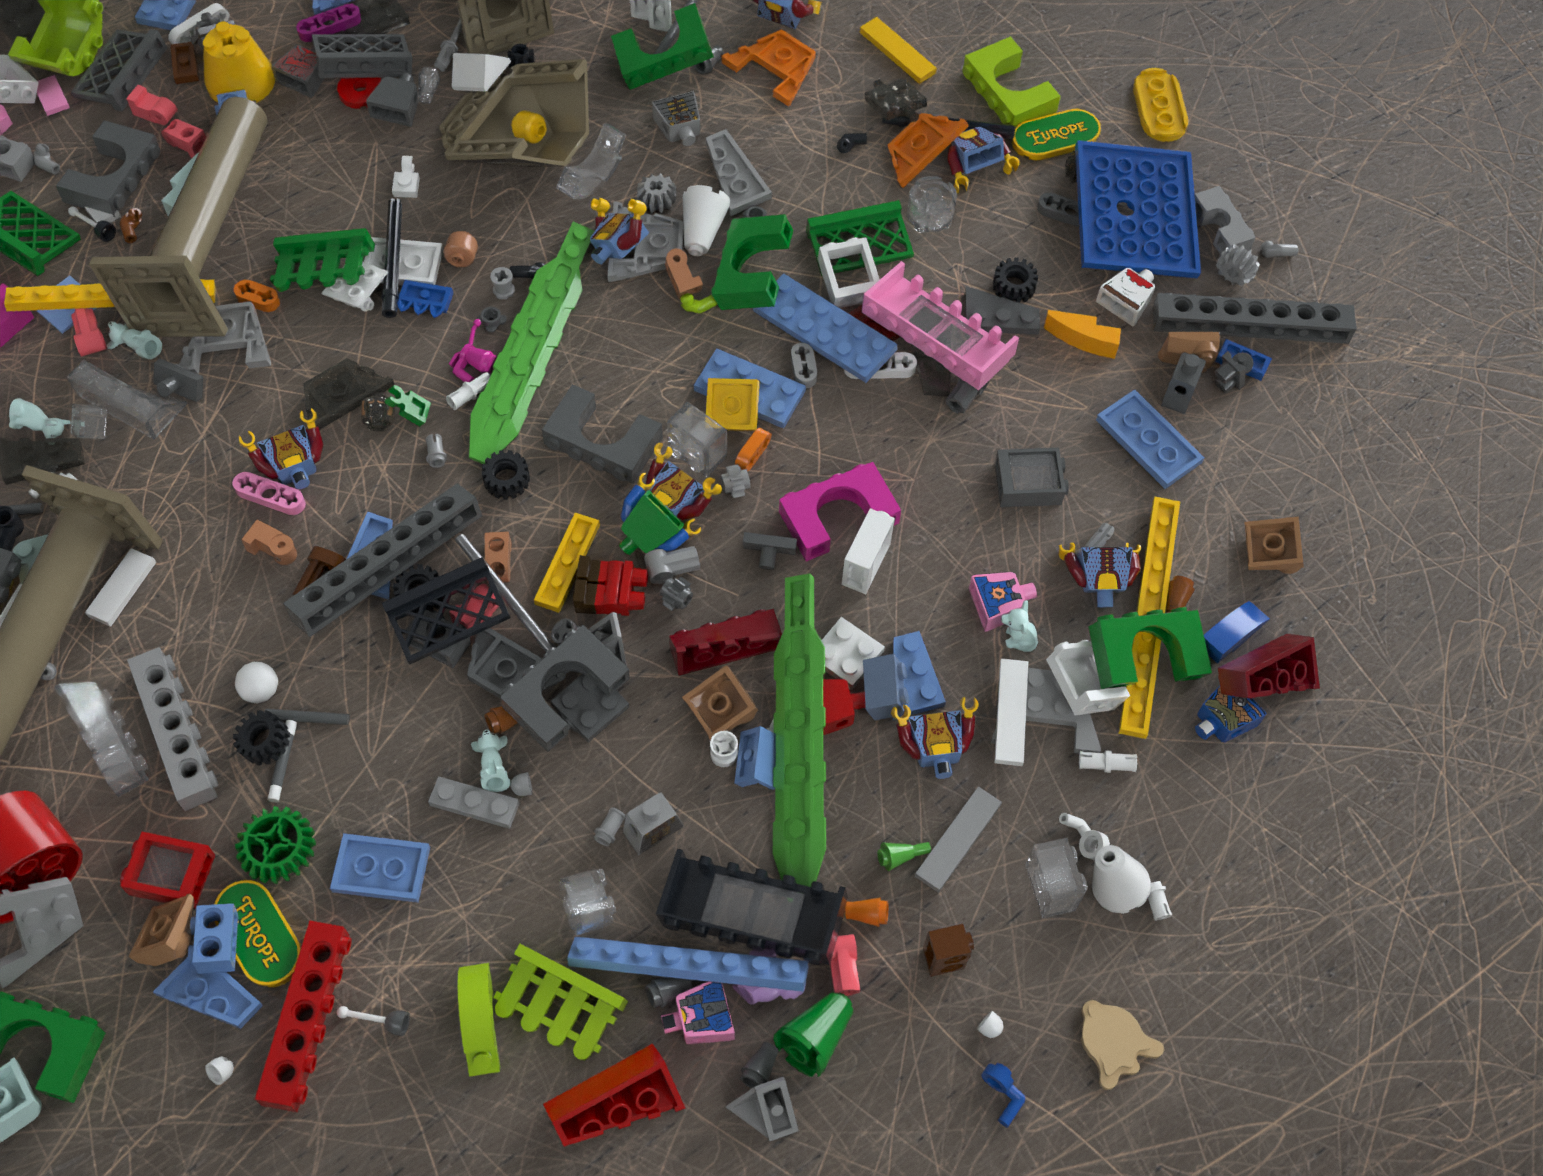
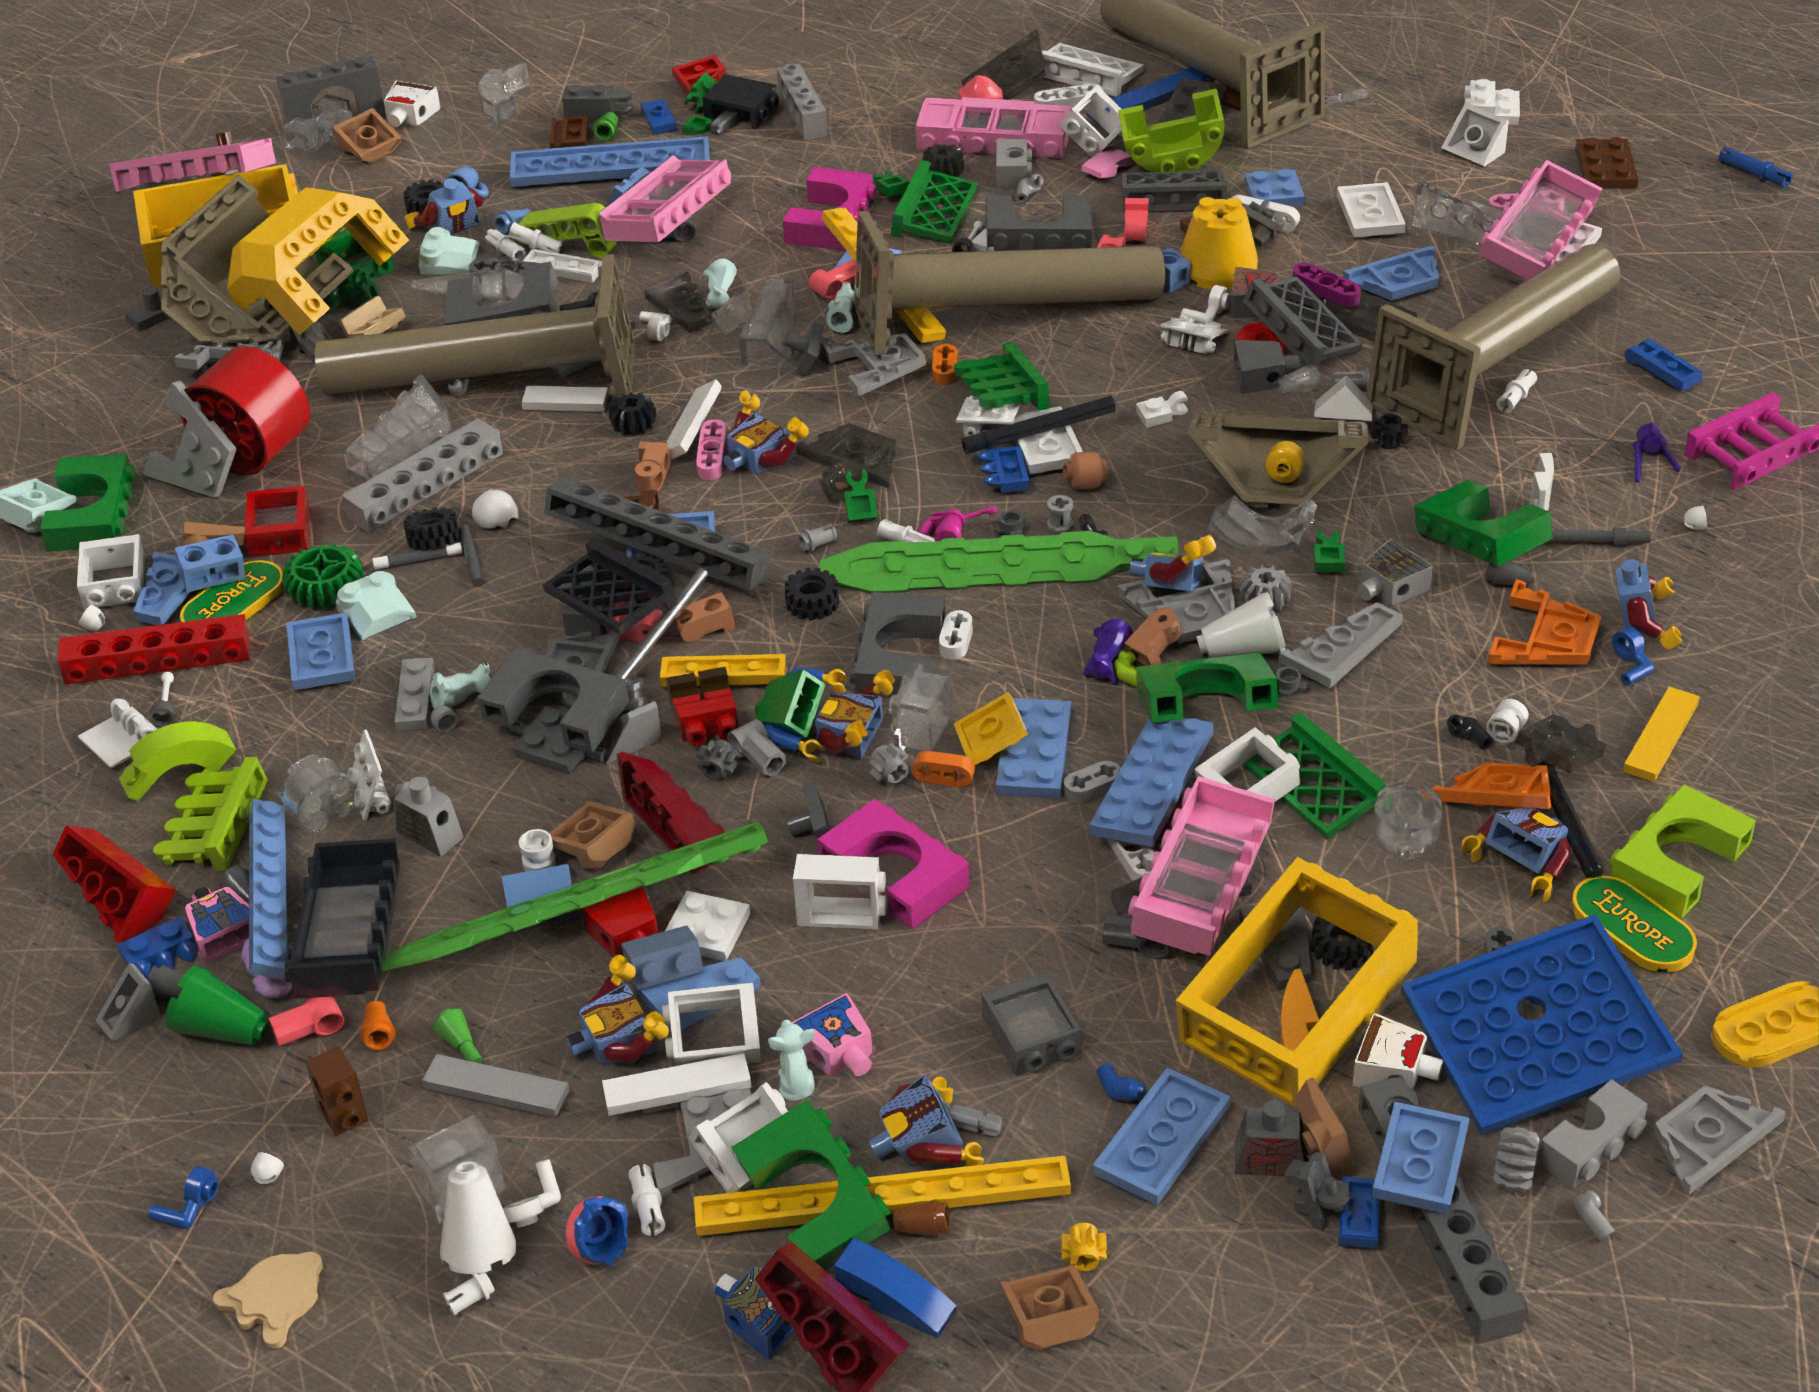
camera: 75 degrees right, 20 degrees down
(133, 1028) = (96, 557): none -> white window
(185, 538) = (632, 413): none -> black gear
(220, 495) = (692, 418): none -> white tile
(296, 95) = (1218, 301): none -> white plate
(325, 123) = (1200, 334): none -> white hinge
(337, 810) = (373, 604): none -> light aqua slope
(409, 1066) = (117, 735): none -> white hinge
(581, 854) = (367, 779): none -> white hinge
(604, 393) = (951, 633): none -> white beam
(638, 145) = (1329, 554): none -> green plate
(672, 303) = (1110, 641): none -> dark purple animal
(703, 1074) = (159, 946): none -> blue plate
(813, 29) = (1630, 645): none -> blue plate
(857, 119) = (1507, 721): none -> white wheel
(975, 648) = (709, 999): none -> white window
(1035, 333) = (1256, 1055): none -> yellow door
(1098, 449) = (1120, 1088): none -> blue arm
(1134, 801) = (598, 1231): none -> blue hair
(1233, 511) = (1083, 1246): none -> yellow gear
(1235, 306) = (1421, 1158): none -> medium blue plate
(1238, 171) = (1710, 1133): none -> light grey wing

